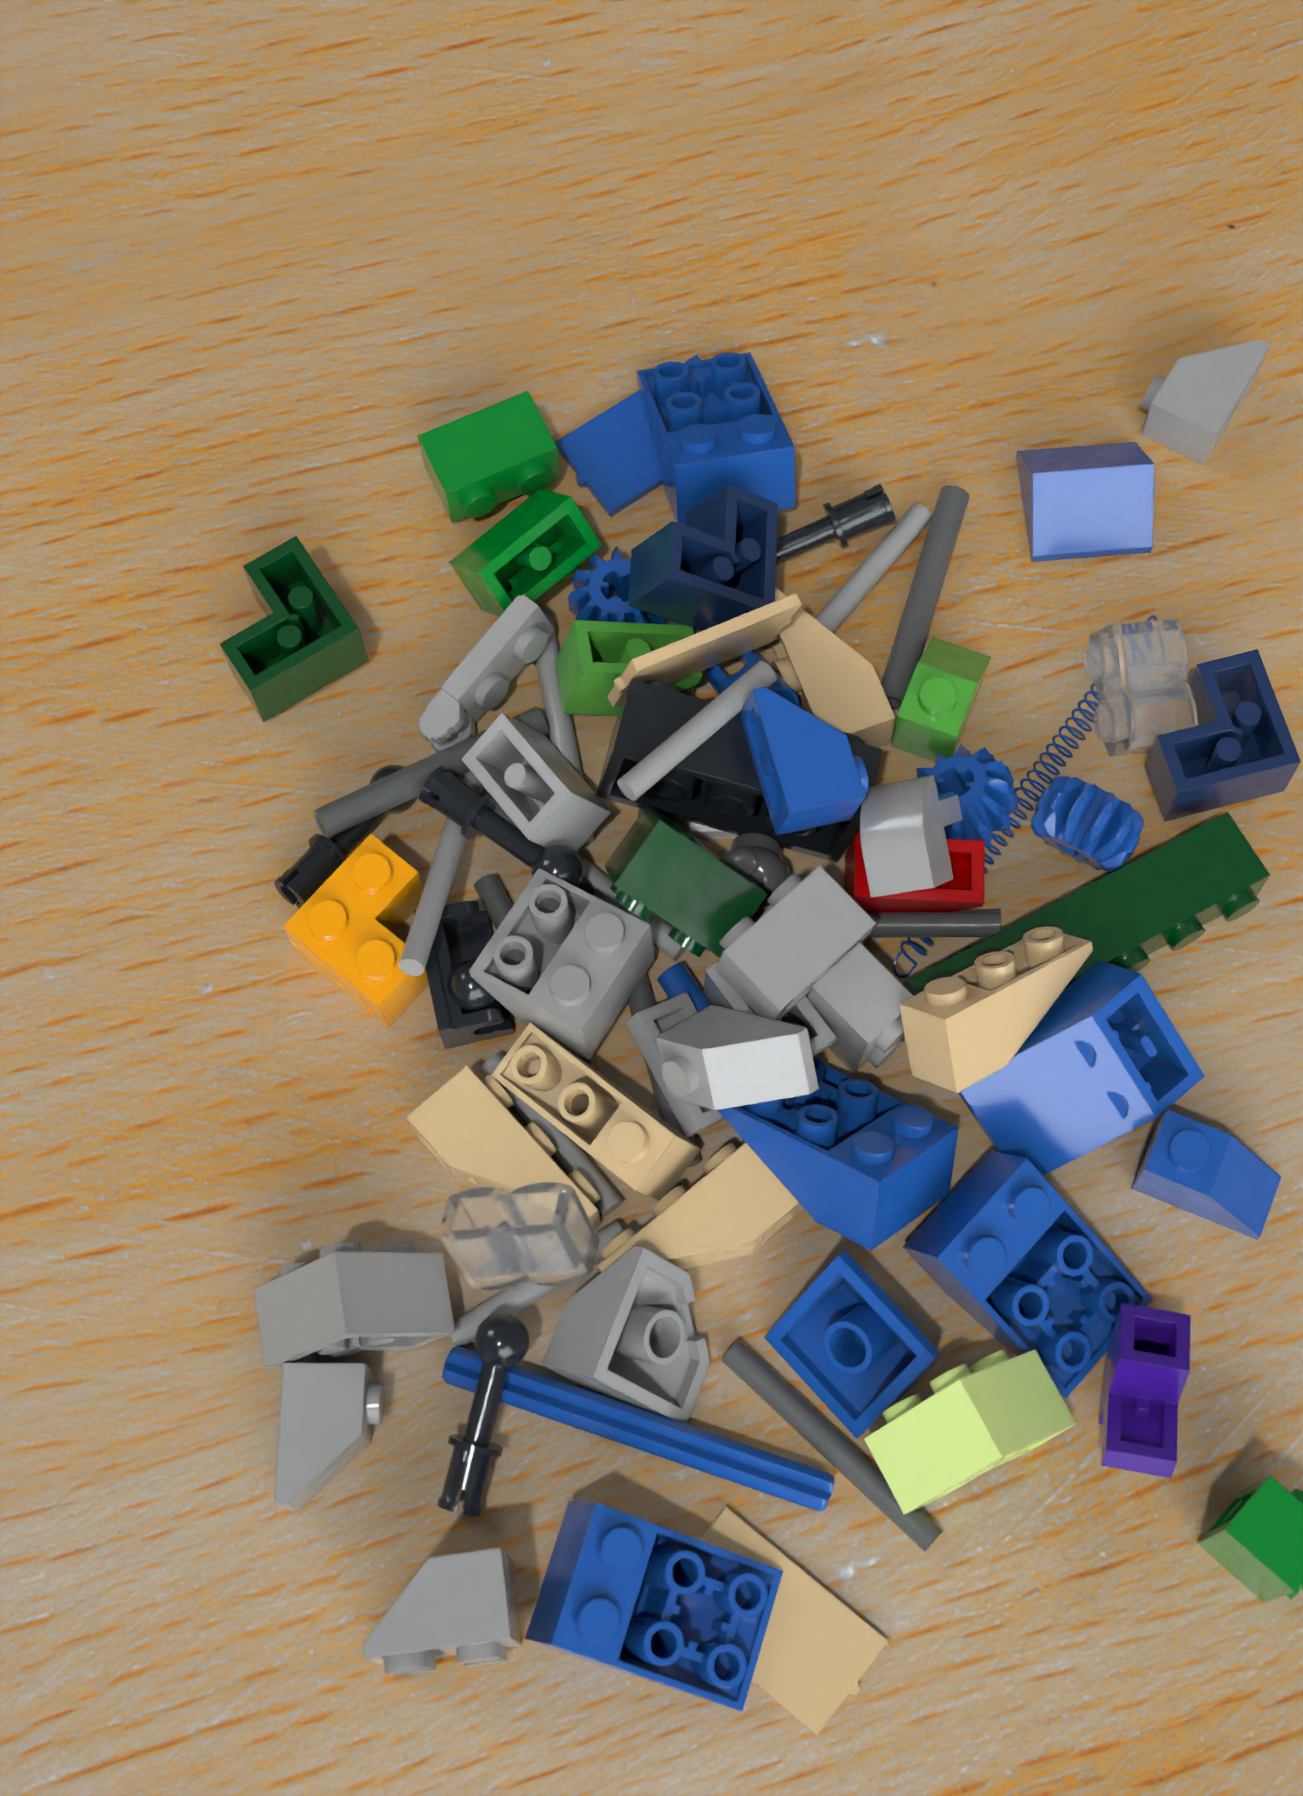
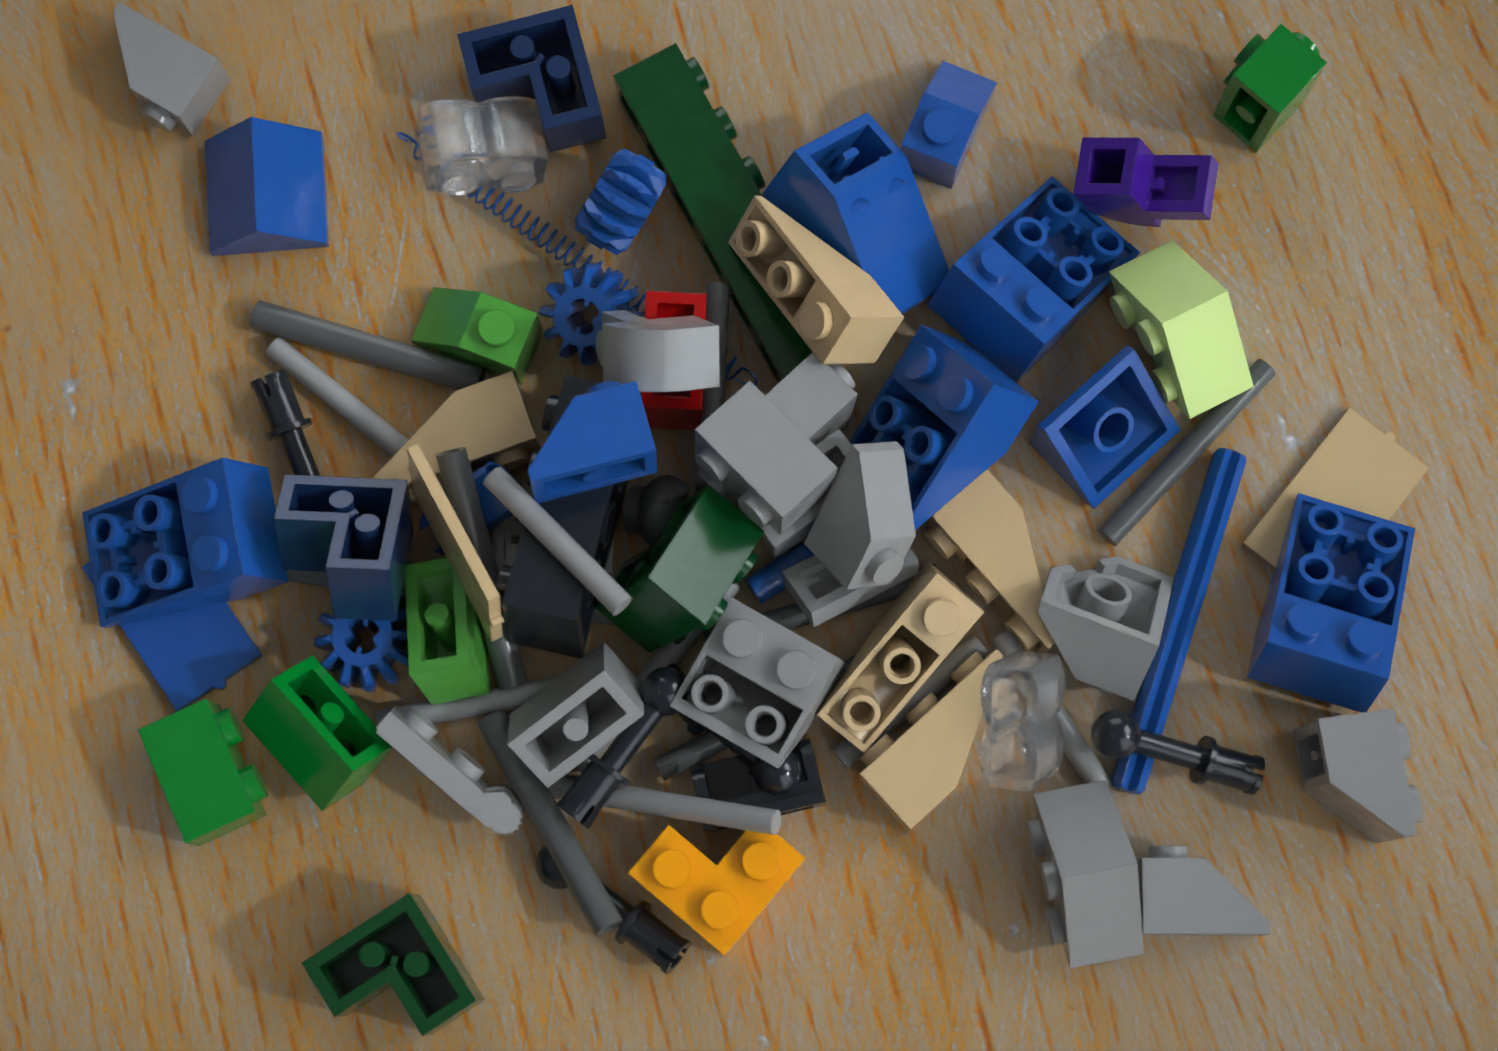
camera: 90 degrees left, 10 degrees up
(780, 656) = (464, 499): none -> dark grey piece

